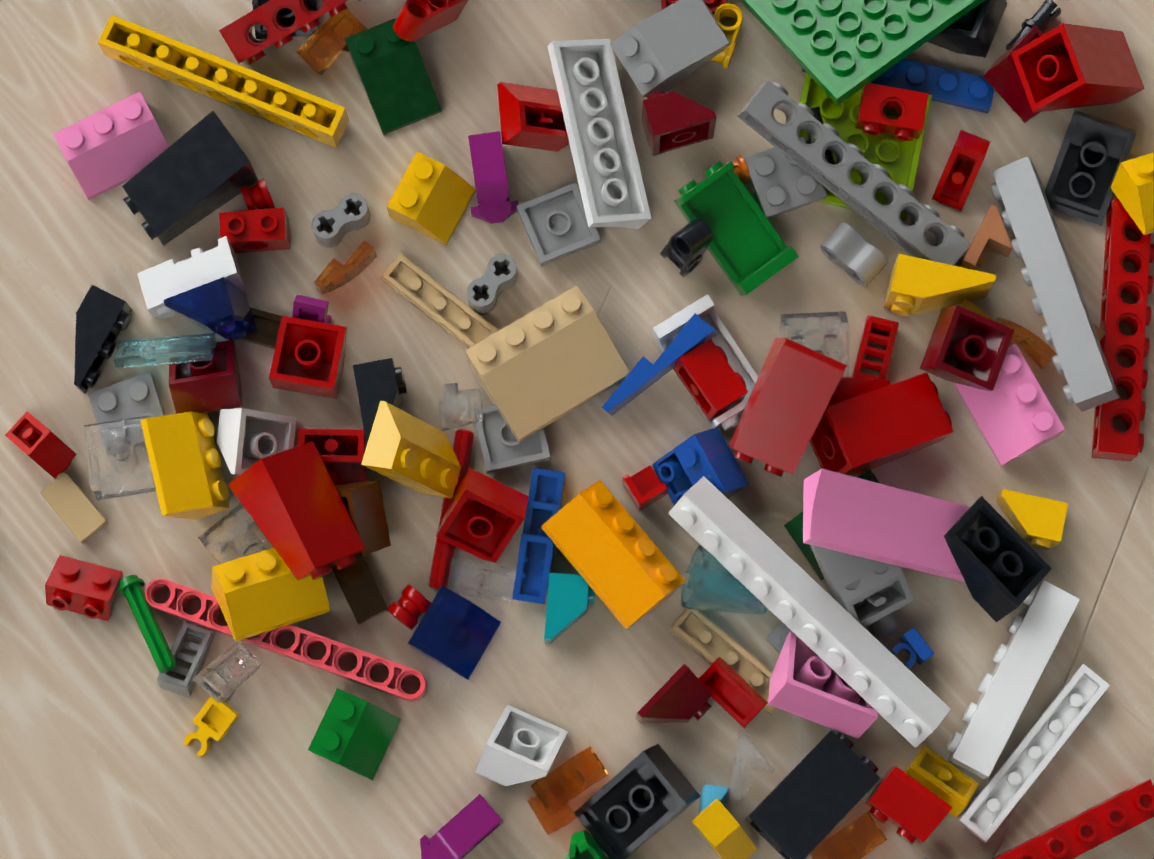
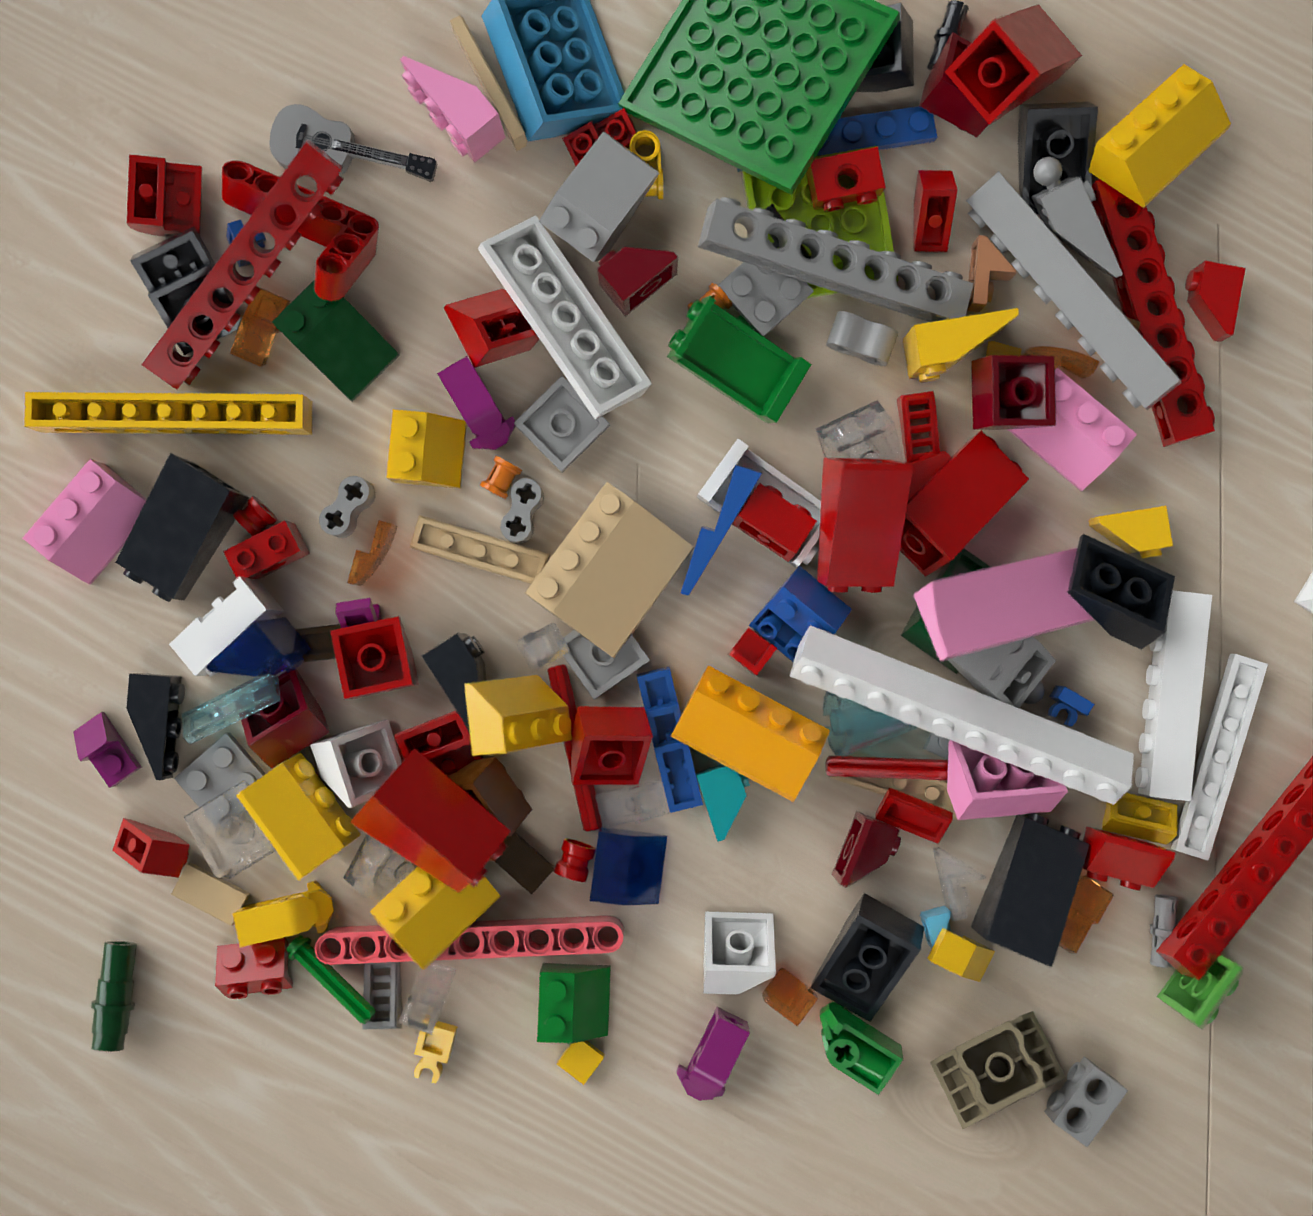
camera: 25 degrees left, 10 degrees up
(39, 346) = (106, 750): none -> magenta slope
(131, 550) = (284, 916): none -> yellow piece
(338, 791) = (580, 1060): none -> yellow tile
(485, 248) = (501, 477): none -> orange bush
(569, 779) = (795, 958): clear orange slope -> none
(688, 246) = (699, 395): black piece -> none
(723, 636) = (886, 767): none -> red axle
(1076, 216) = (1071, 217): none -> light grey slope

